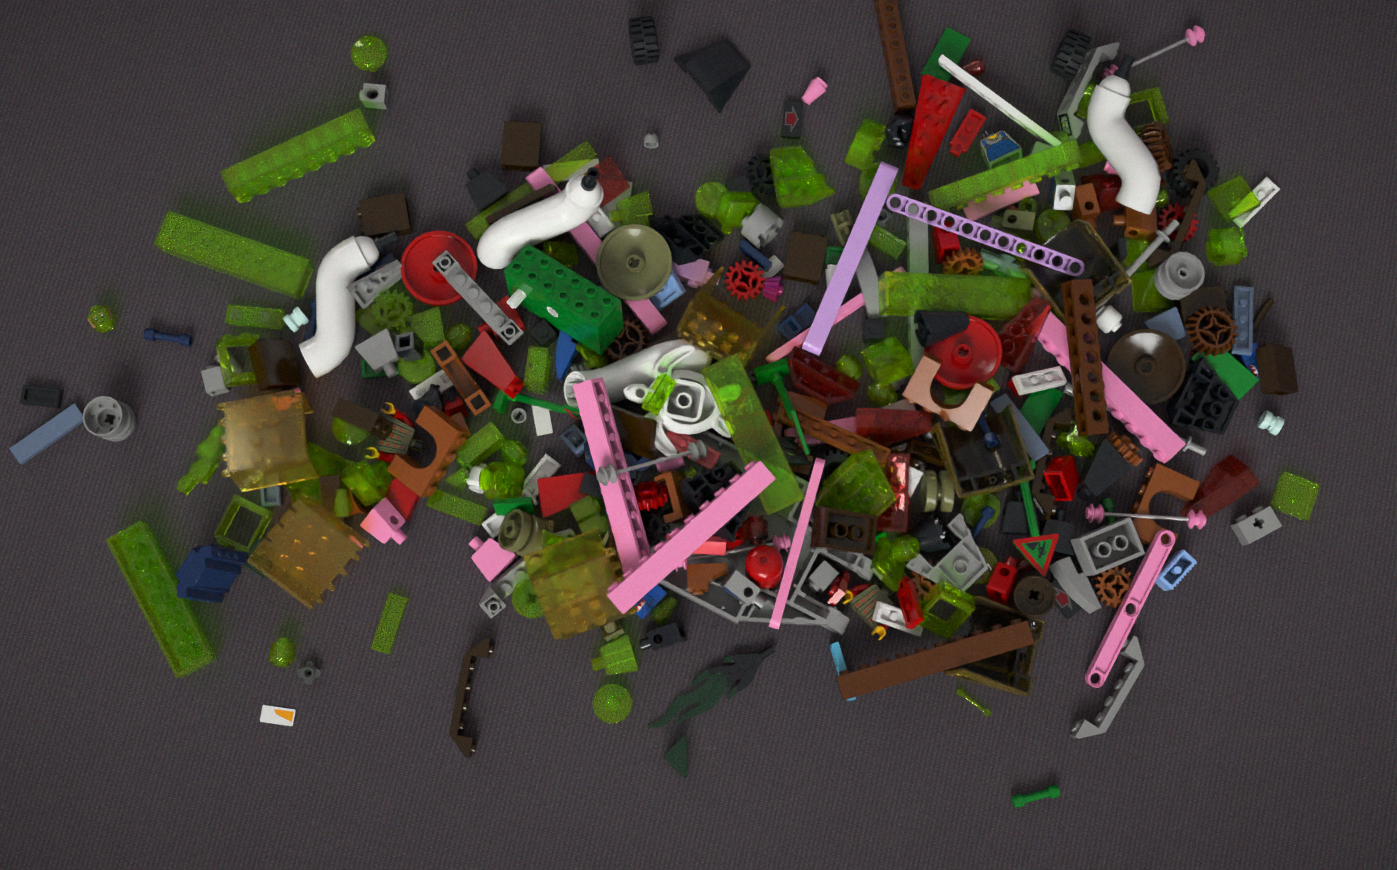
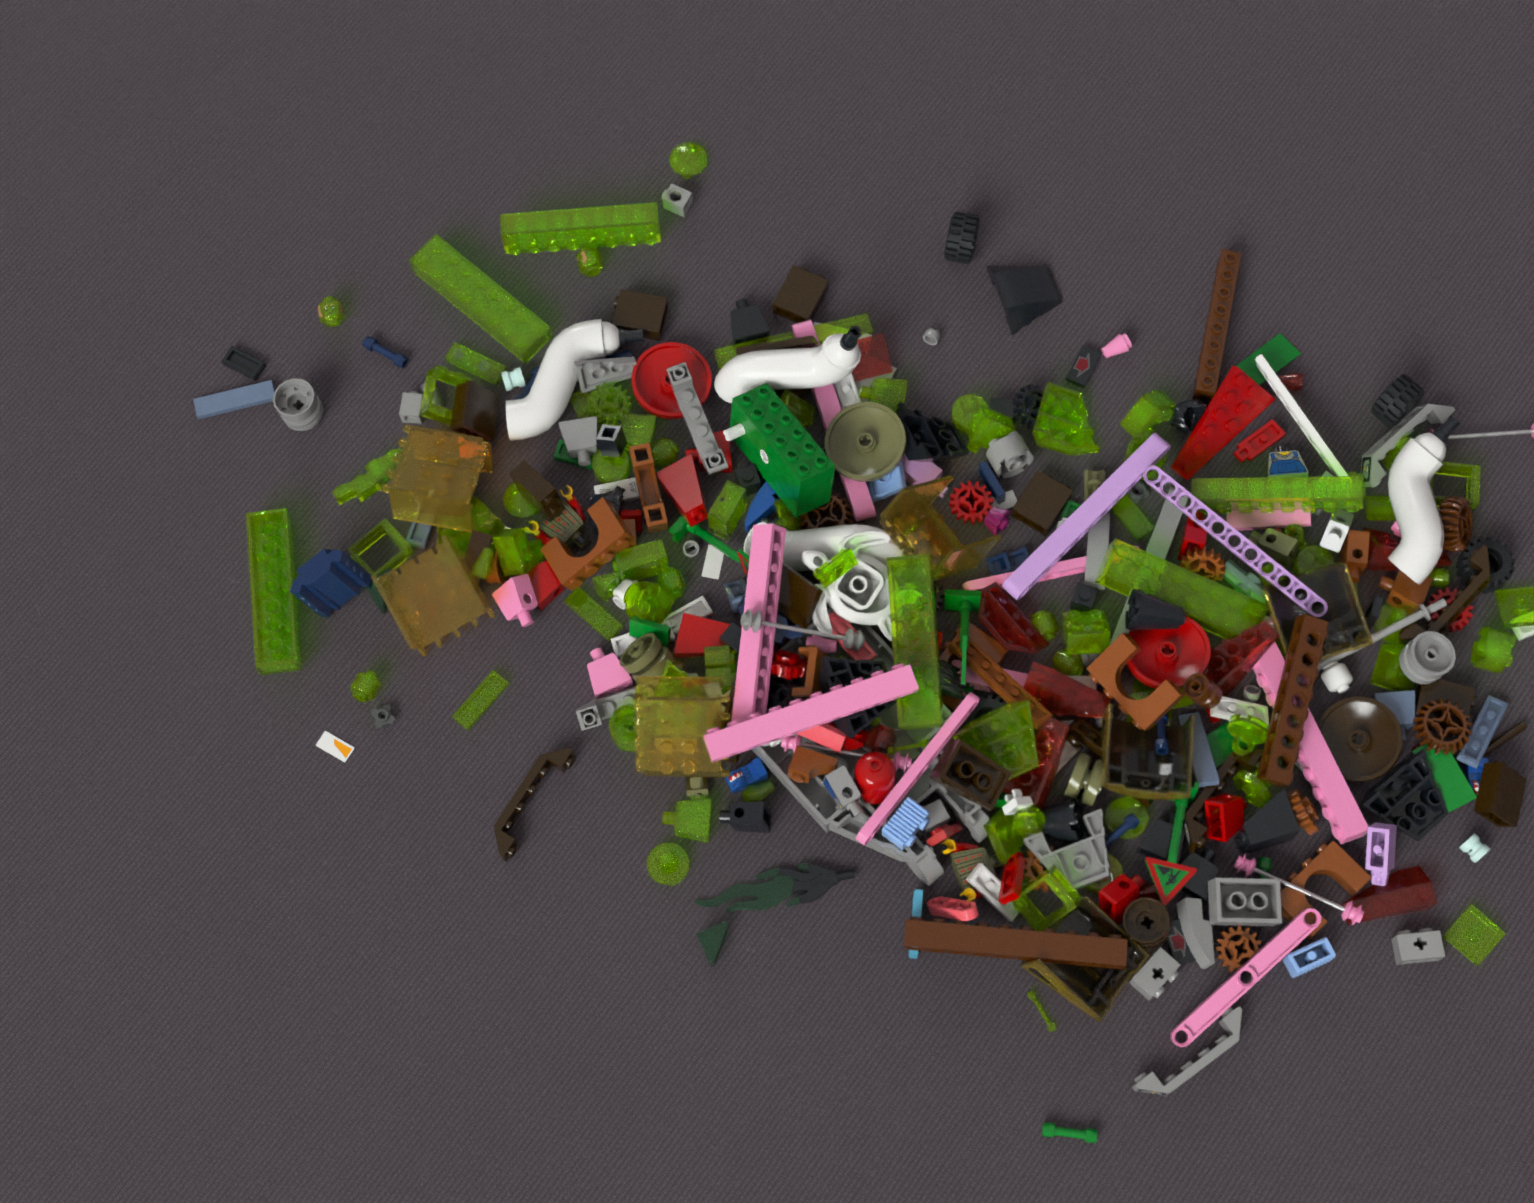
camera: 30 degrees right, 10 degrees down
(319, 183) = (589, 261): none -> clear neon green head
(793, 517) = (891, 750): none -> clear neon green hinge
(806, 596) = (906, 823): none -> light blue brick
(881, 649) = (952, 908): none -> coral beam
(888, 537) = (1015, 802): none -> white tile
(1006, 377) = (1202, 690): none -> reddish brown wheel
(1043, 359) = (1251, 693): none -> light grey hinge
(1054, 397) = (1249, 730): none -> clear neon green tile
(1063, 627) = (1160, 962): none -> light grey brick
(1200, 457) = (1380, 851): none -> lavender hinge

